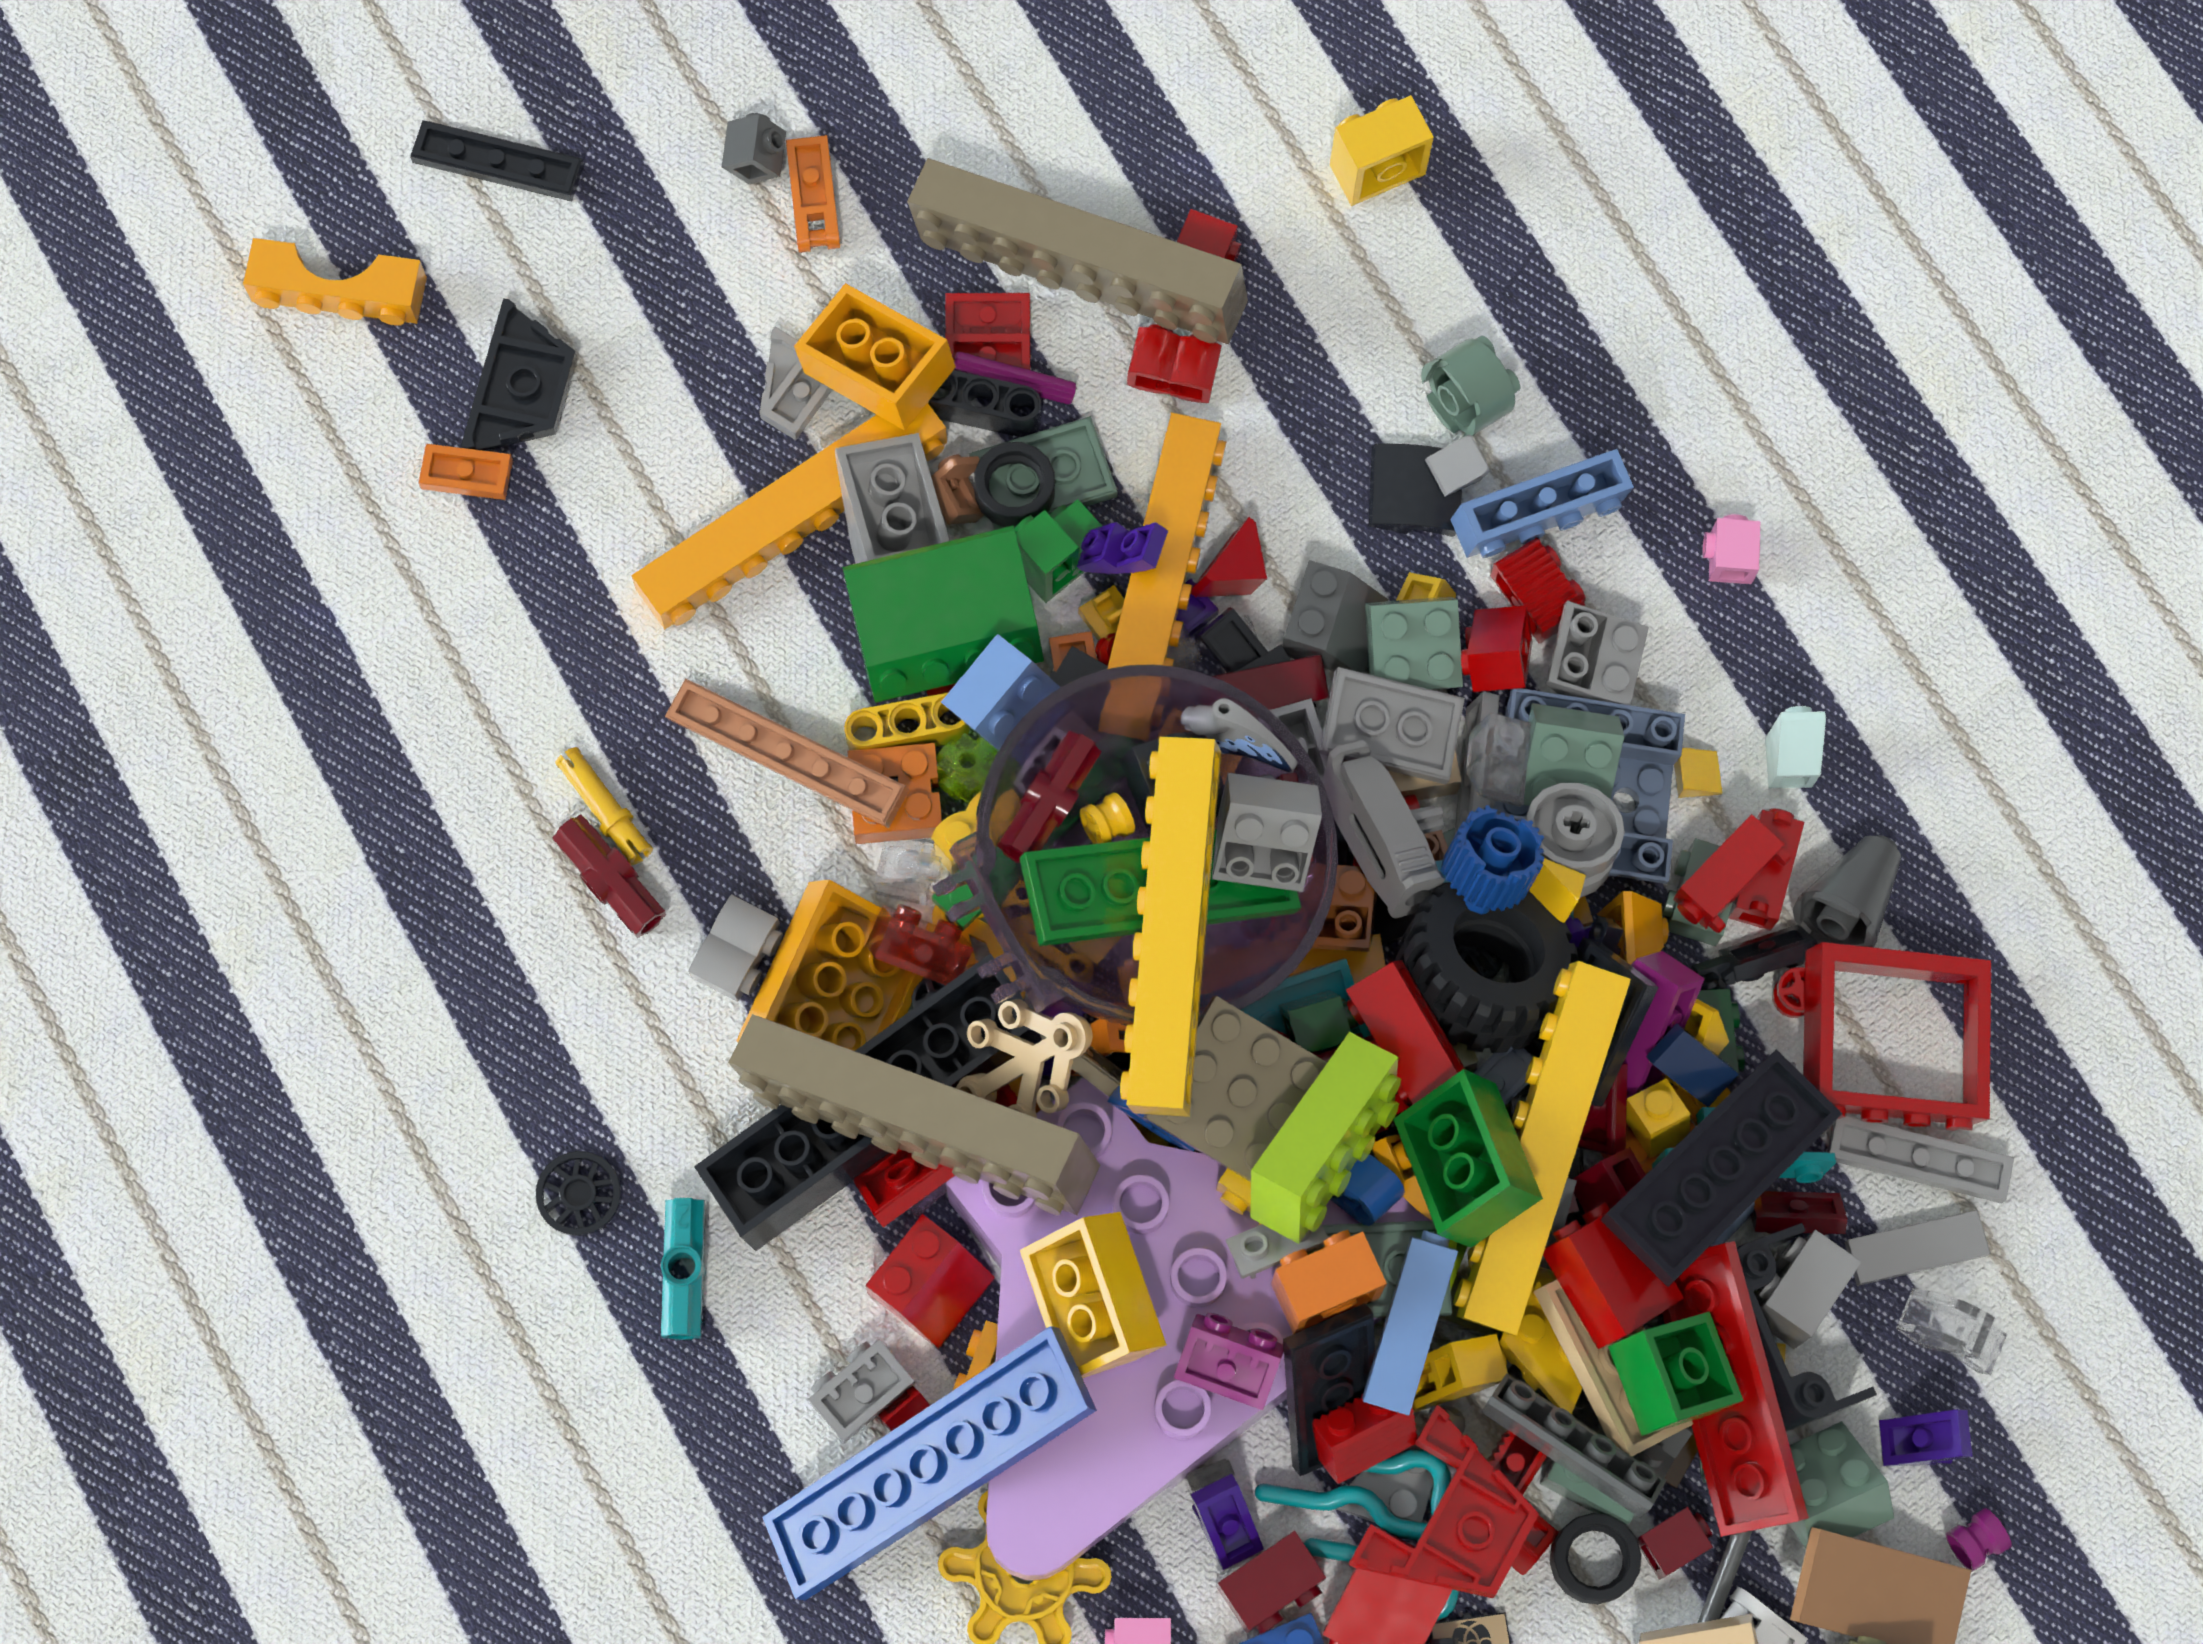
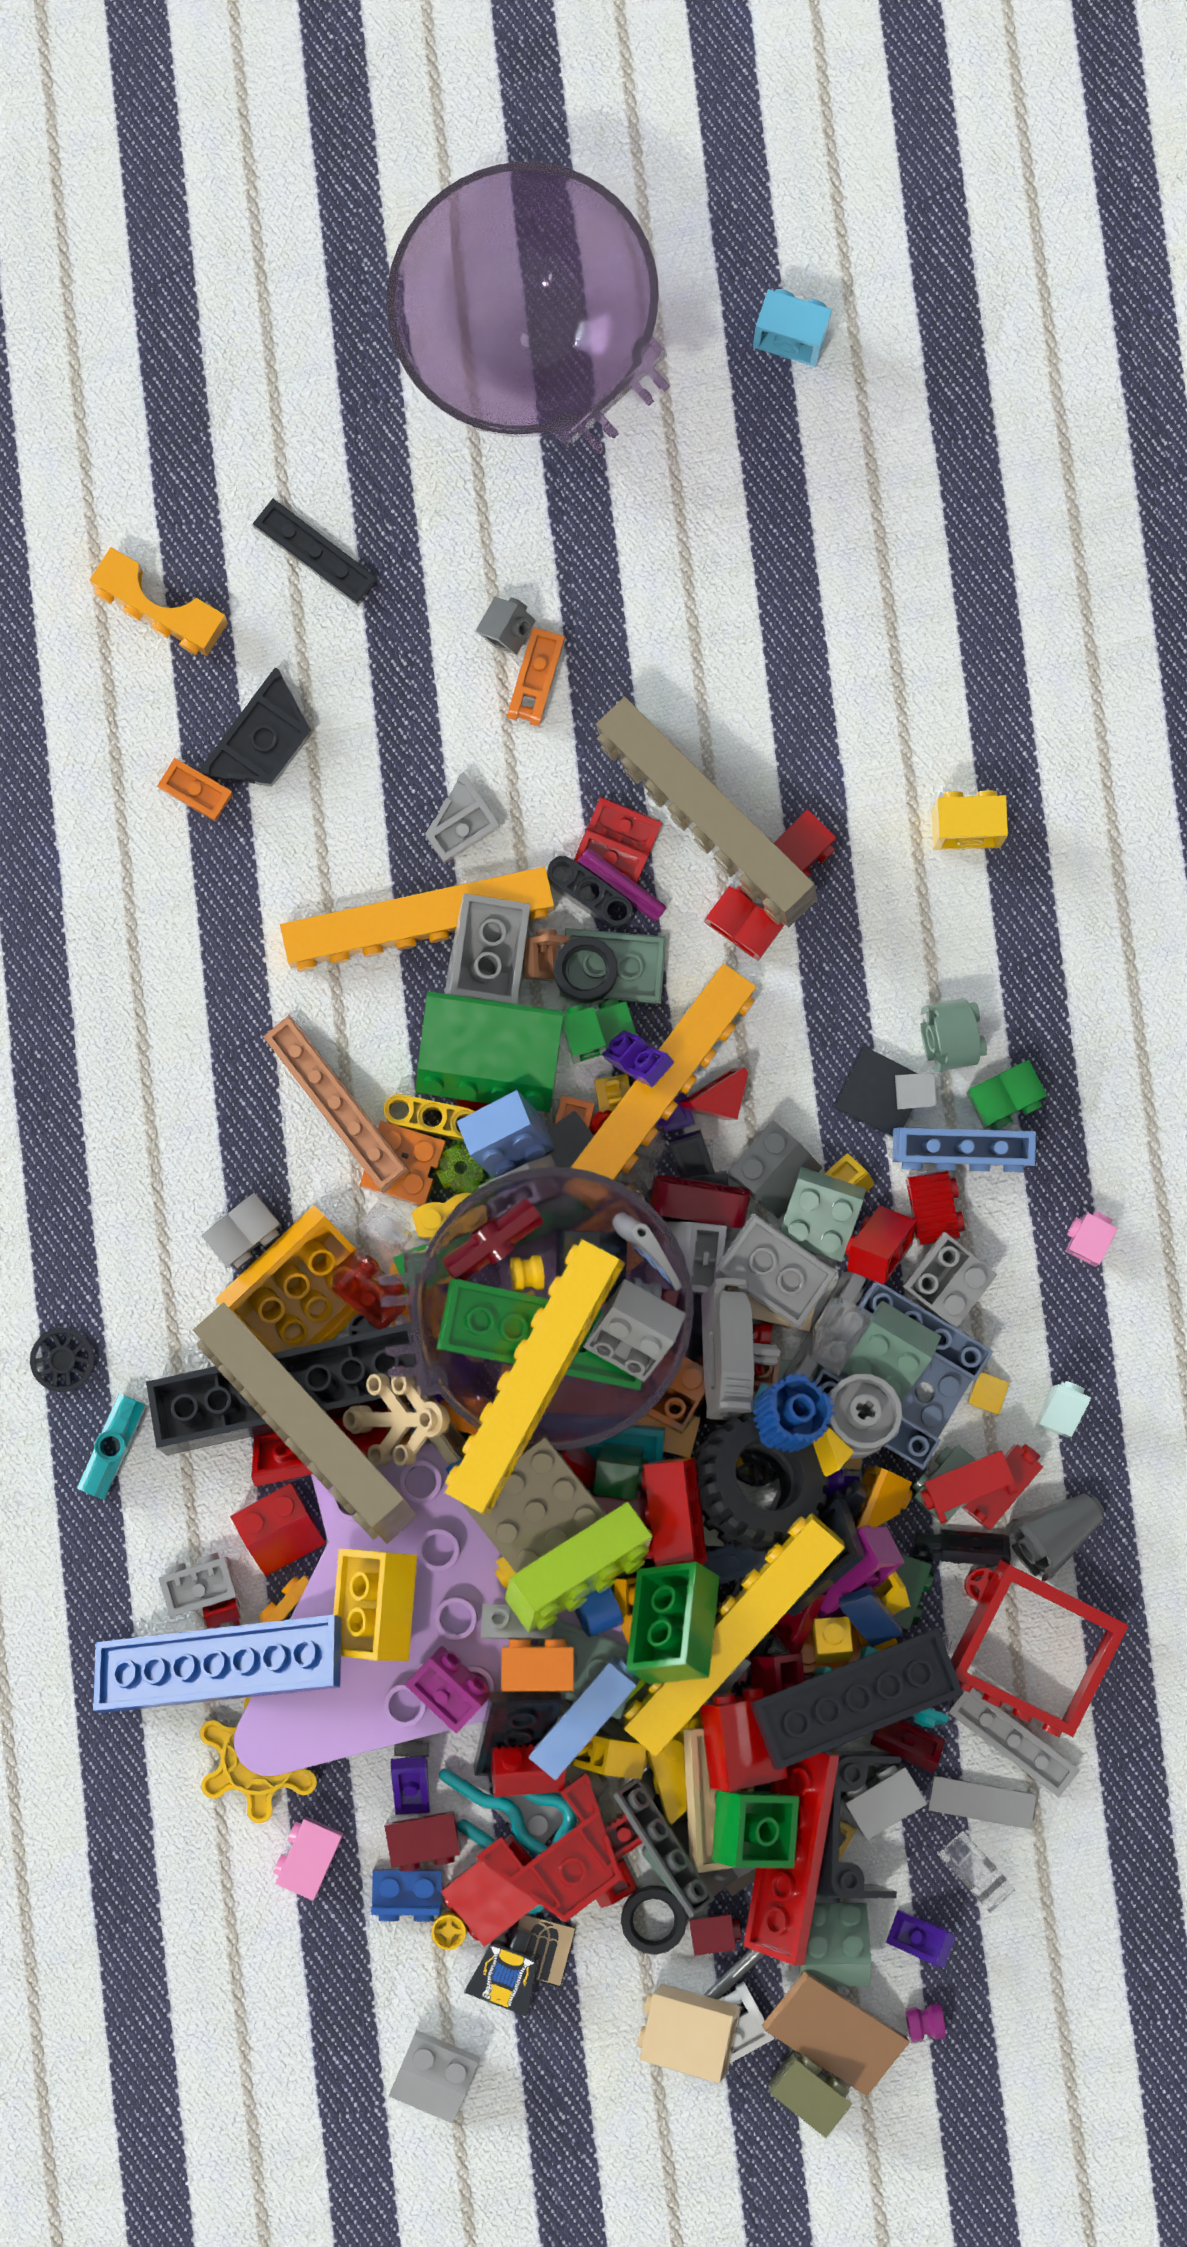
camera: 25 degrees right, 10 degrees up
(609, 876) = (175, 1139): dark red piece -> none
(613, 819) = (192, 1084): yellow pin -> none
(875, 356) = (522, 833): light orange brick -> none
(1562, 430) = (1007, 1094): none -> green brick

